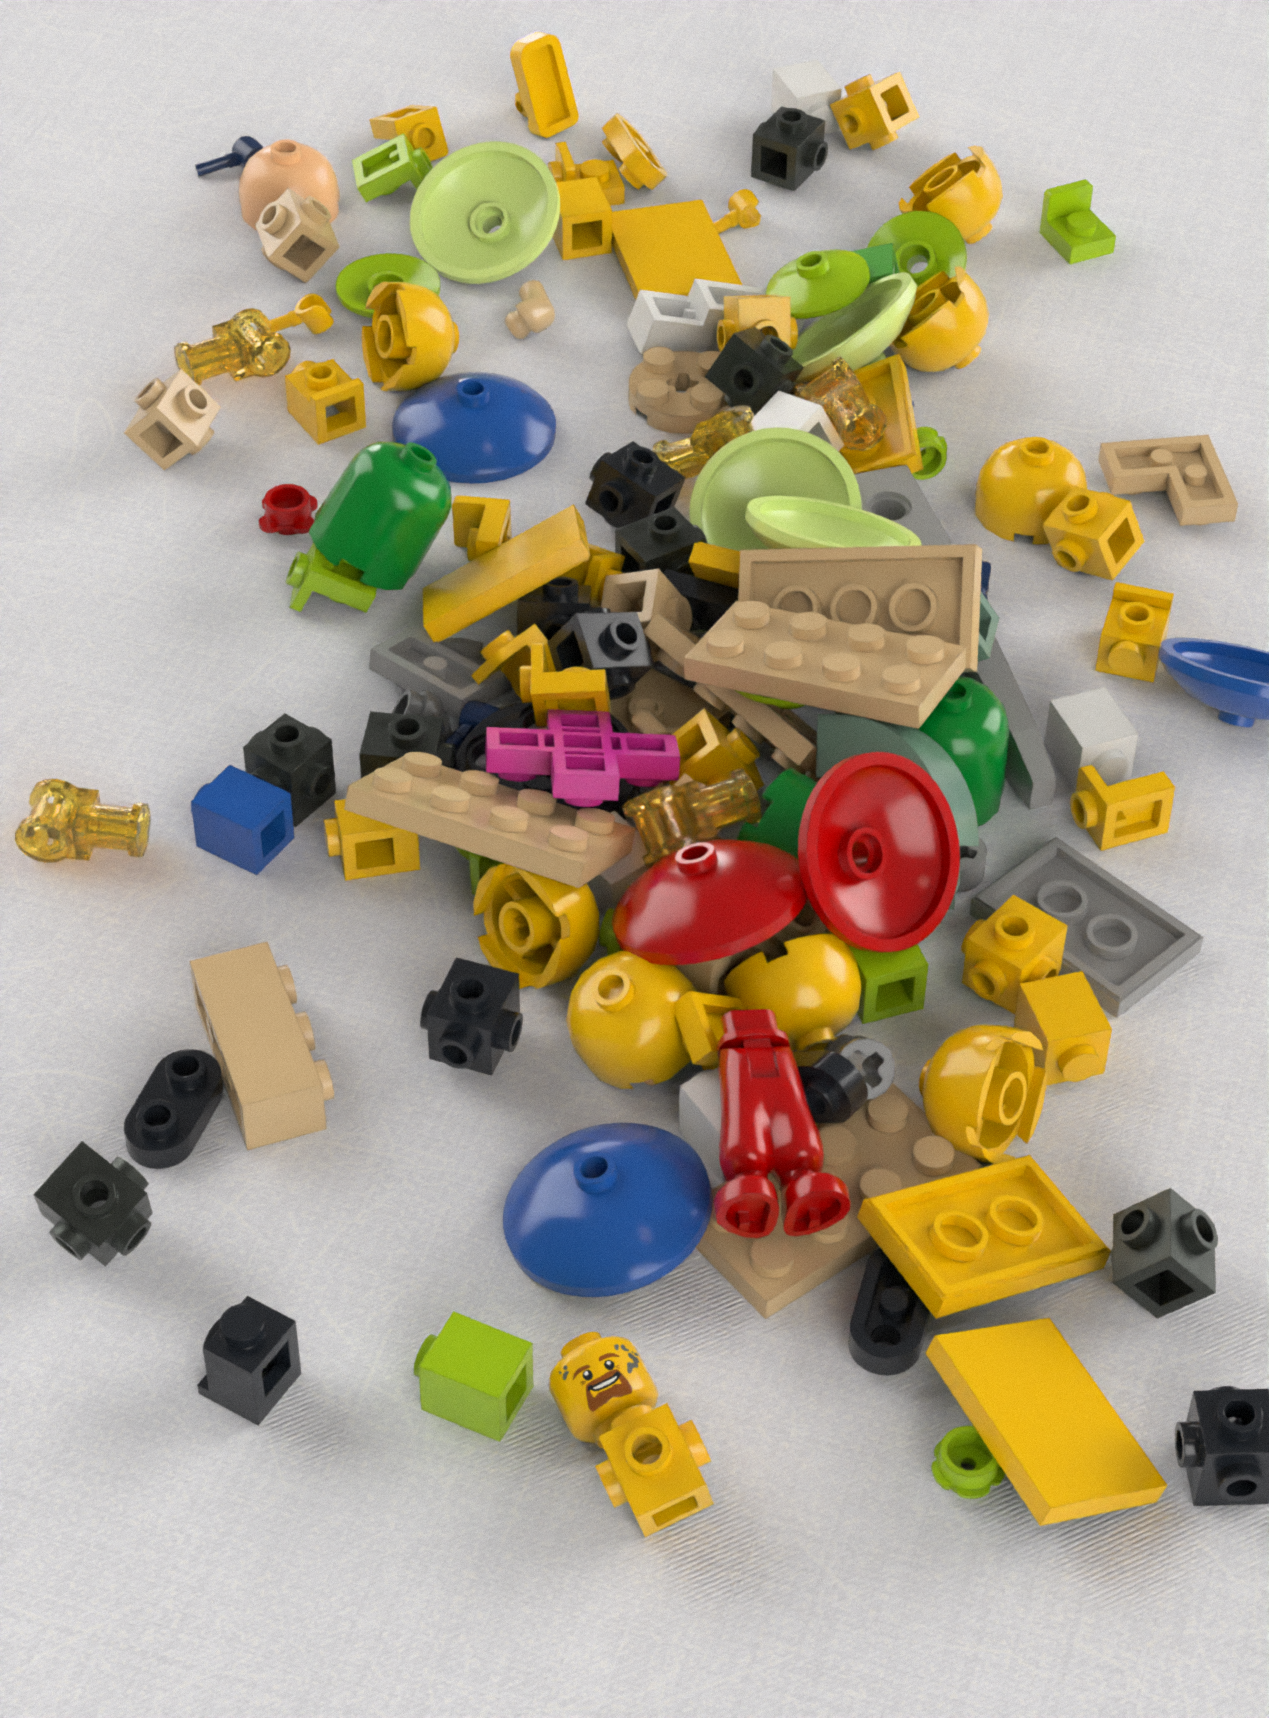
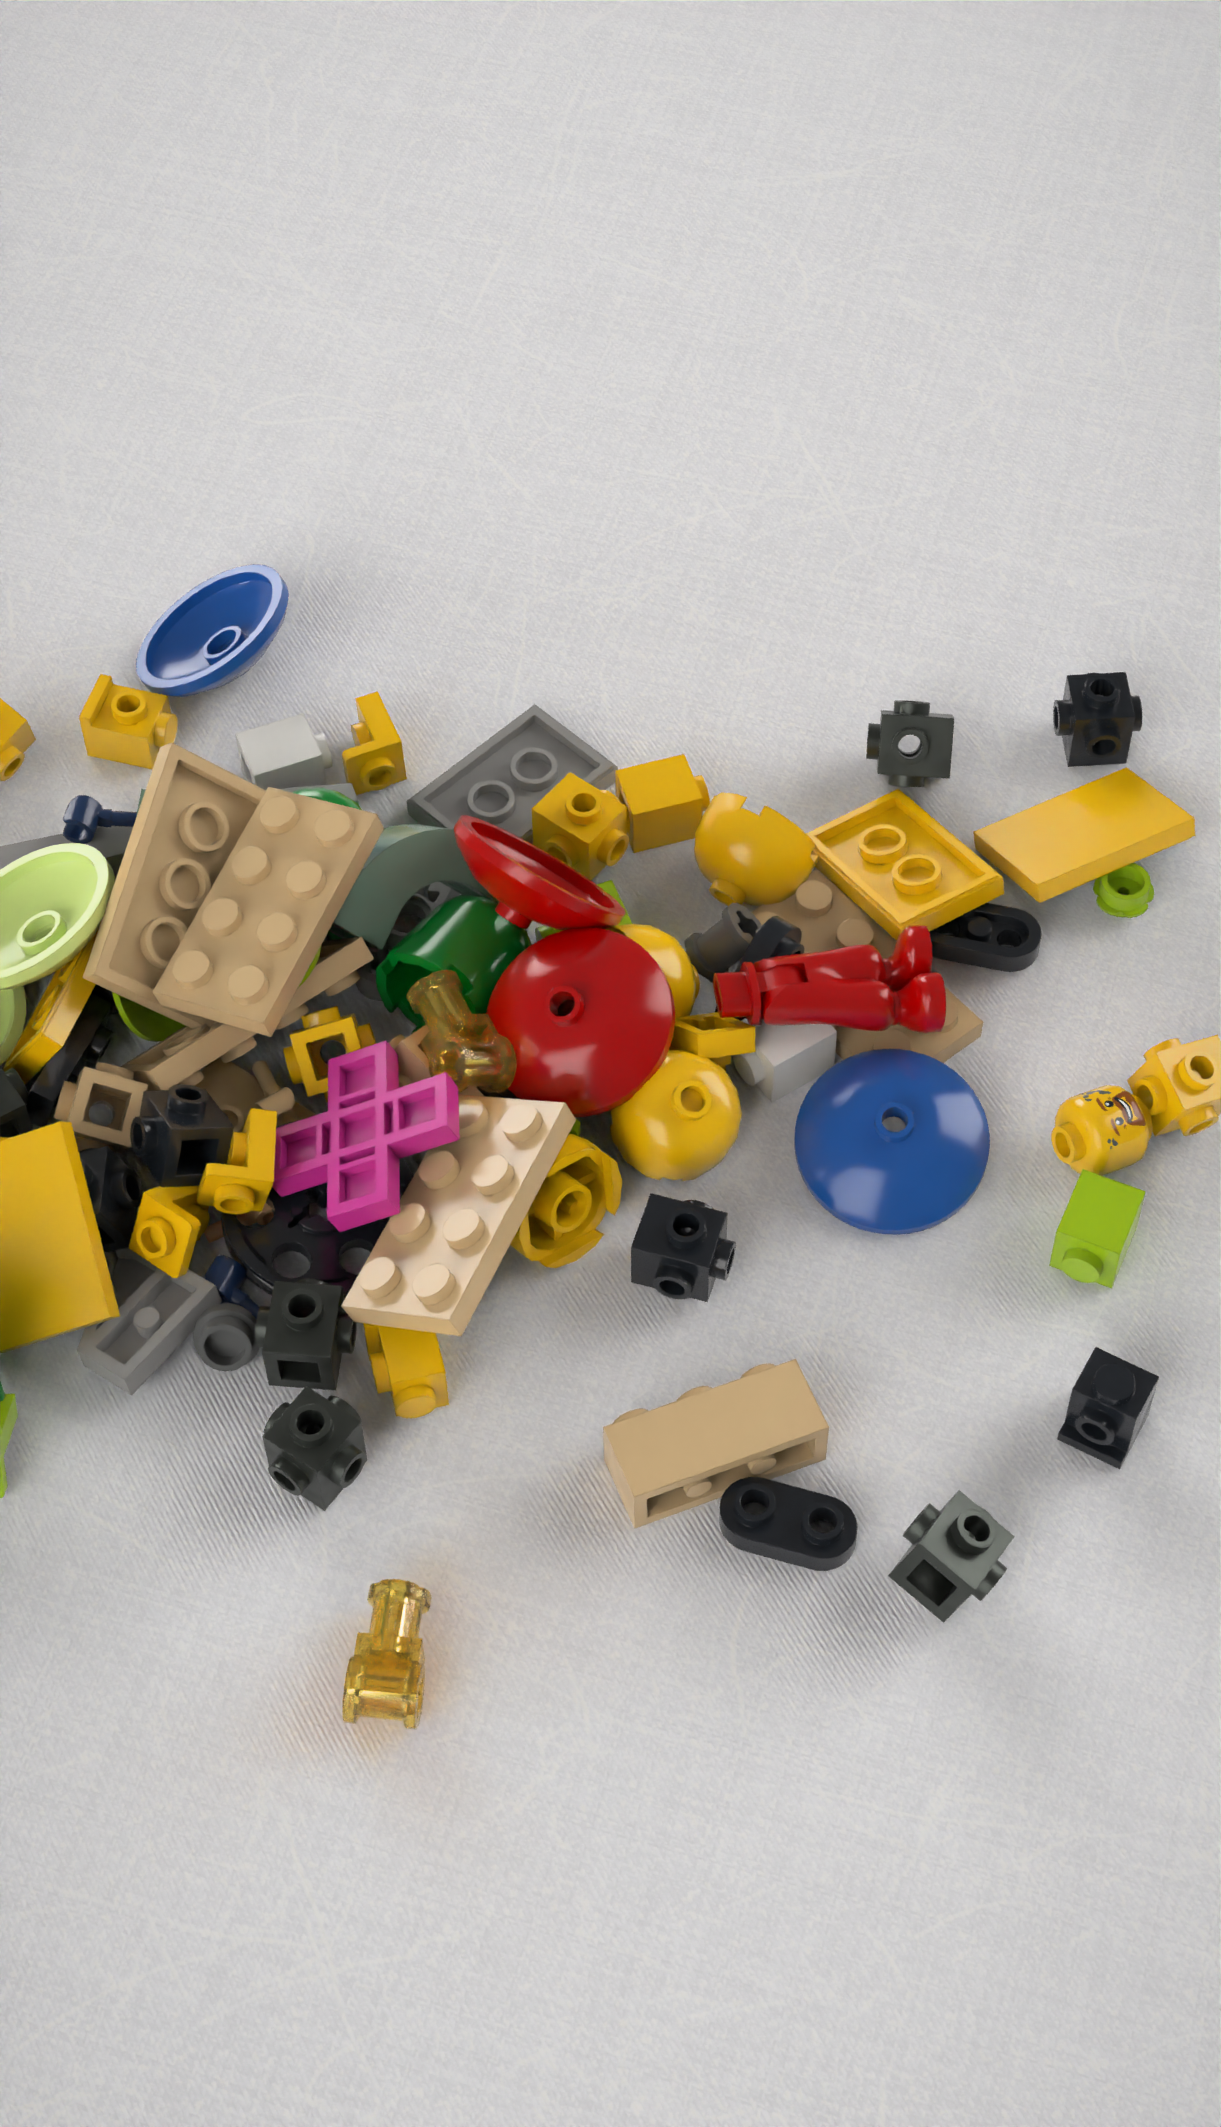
camera: 90 degrees left, 10 degrees up
(242, 819) = (386, 1492): blue brick -> none

